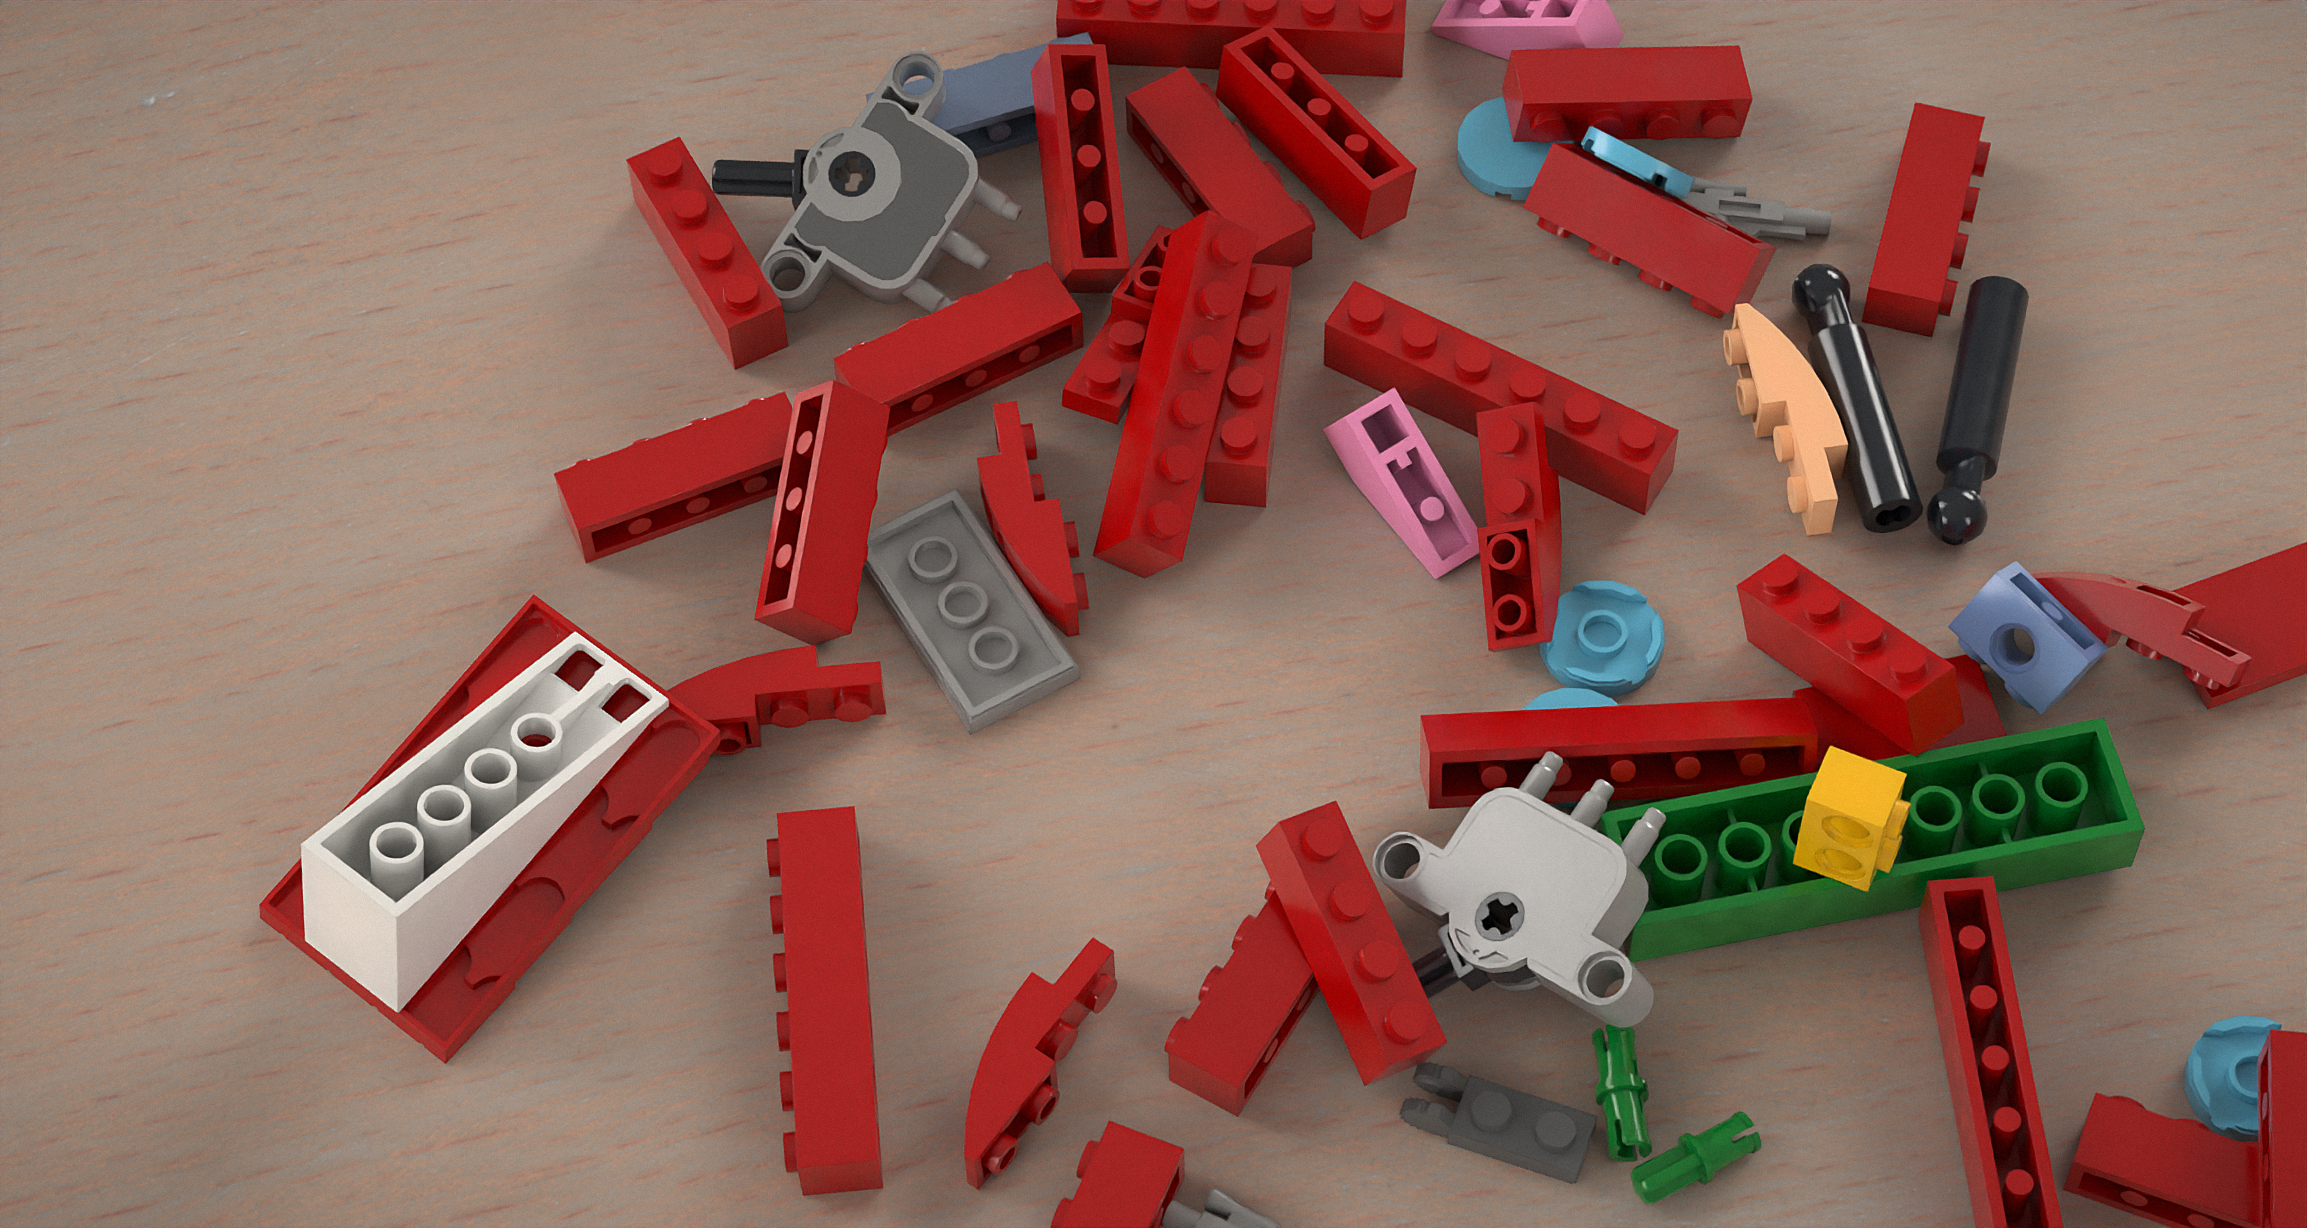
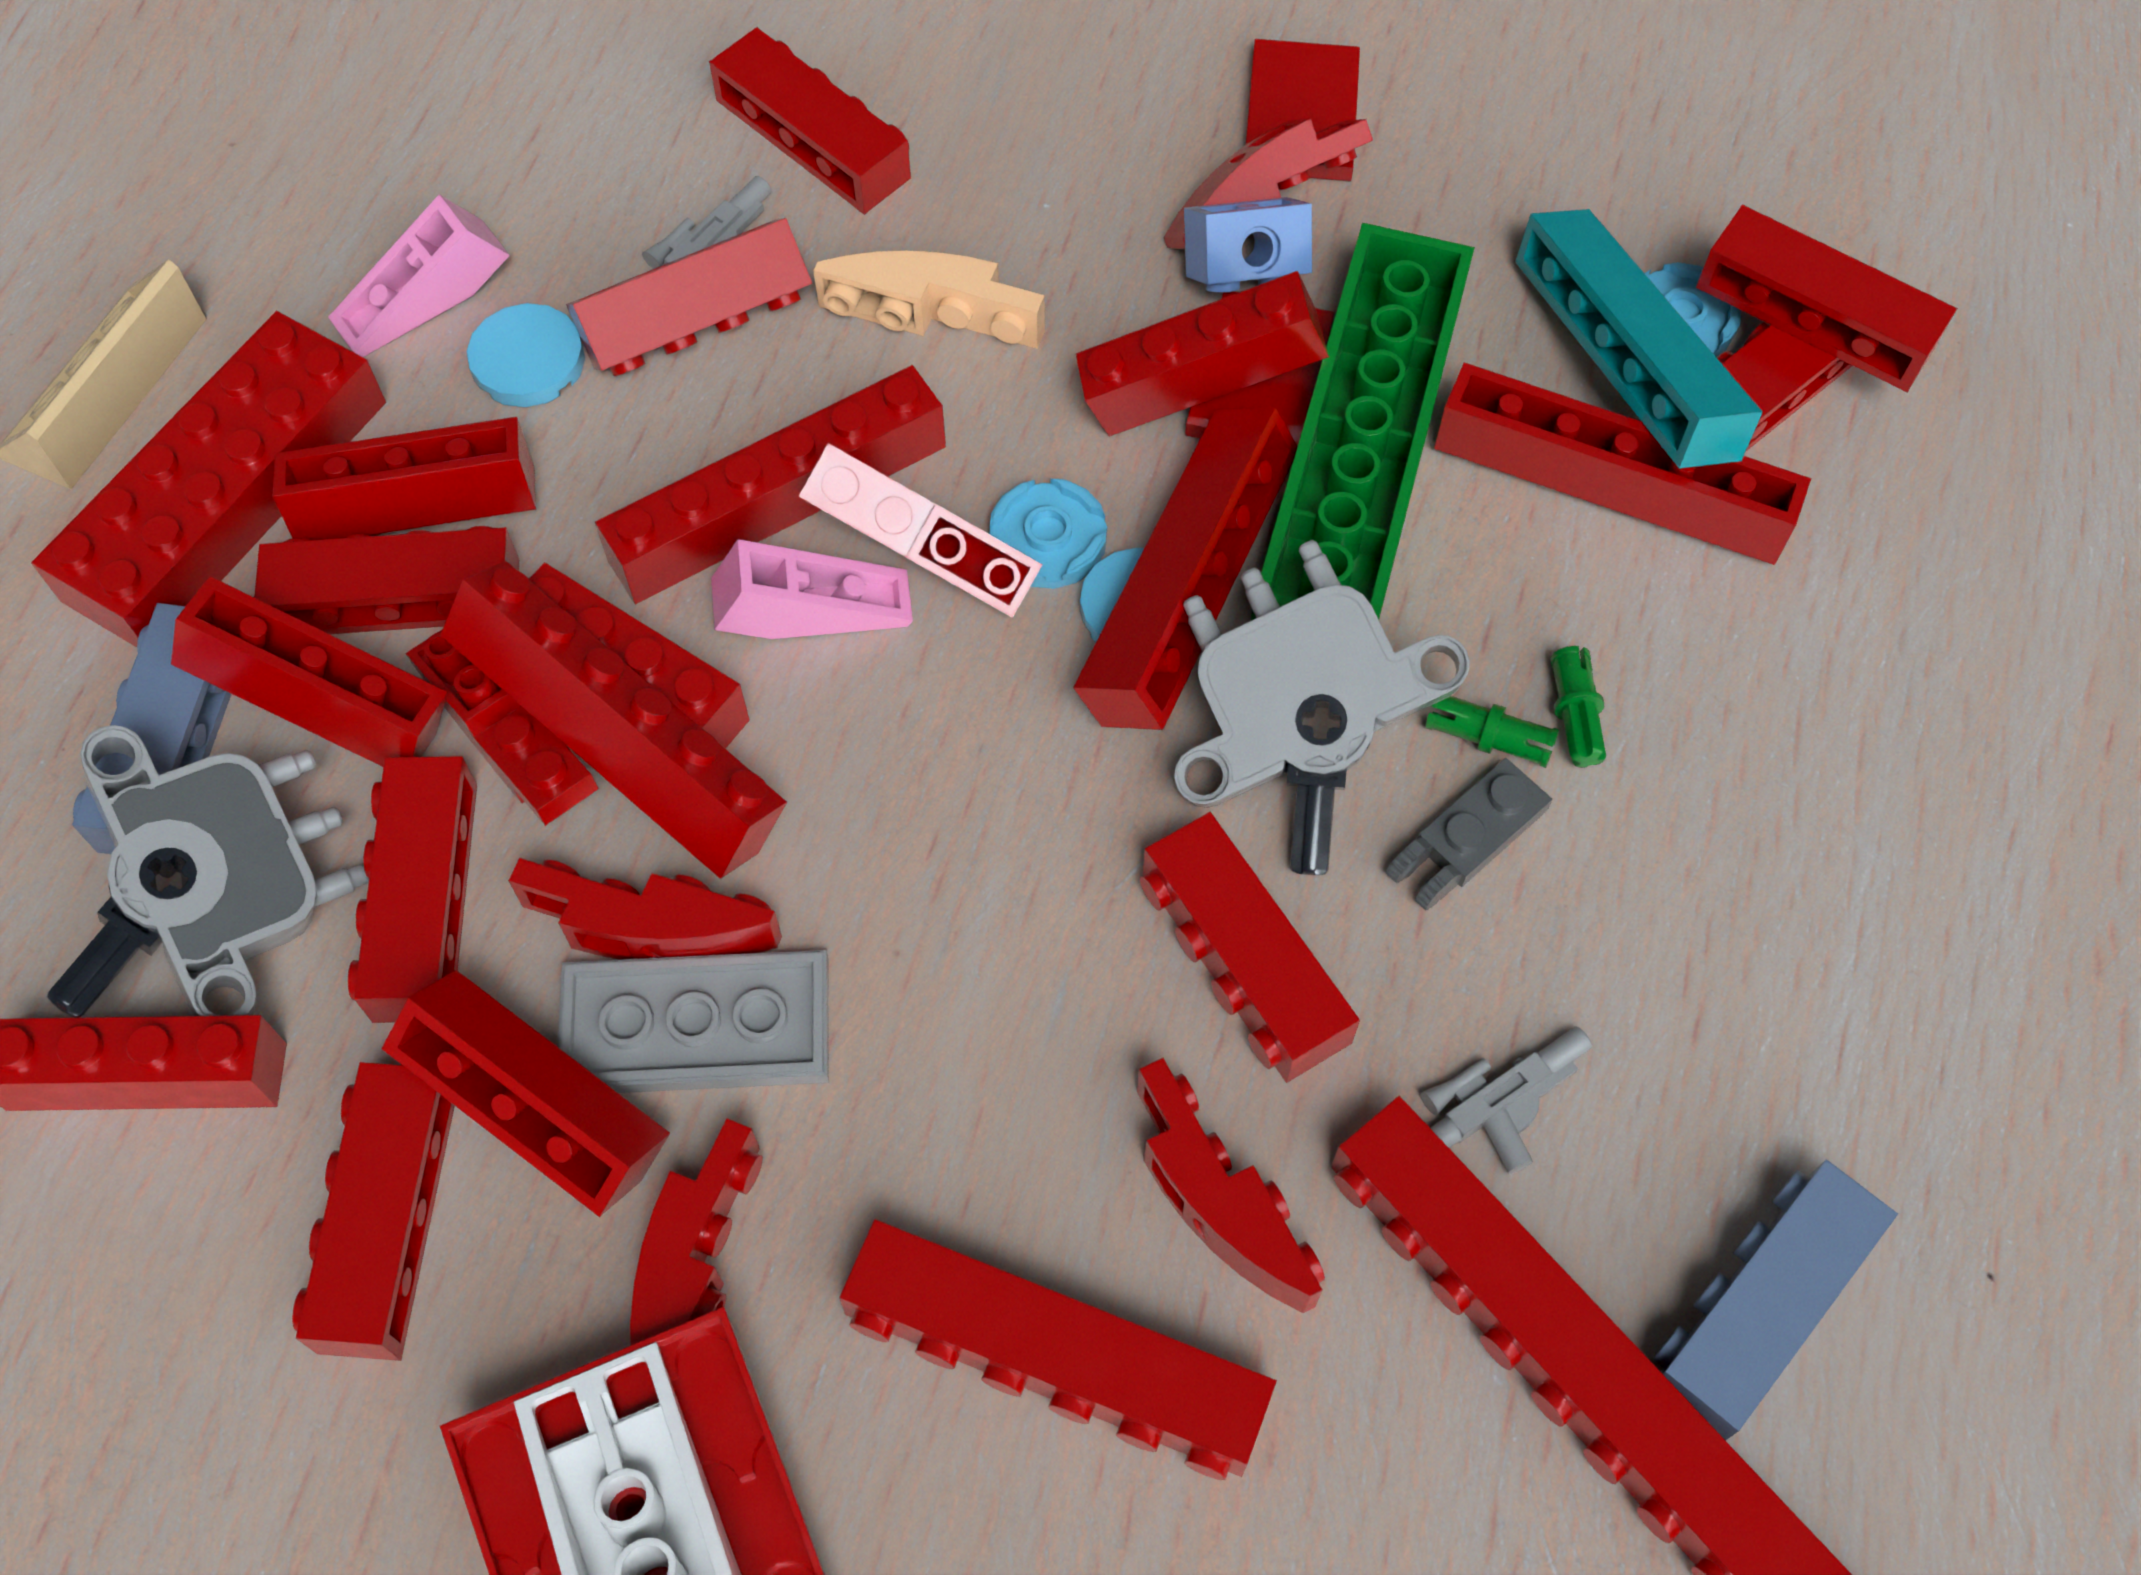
camera: 65 degrees left, 5 degrees up
(1350, 943) = (1279, 849): red brick -> none
(1626, 93) = (544, 245): red brick -> none
(1637, 162) = (625, 263): medium azure tile -> none
(1850, 375) = (1021, 260): black piece -> none
(1852, 819) = (1394, 411): yellow brick -> none
(1977, 407) = (1008, 175): black piece -> none
(2137, 1017) = (1638, 339): none -> teal brick

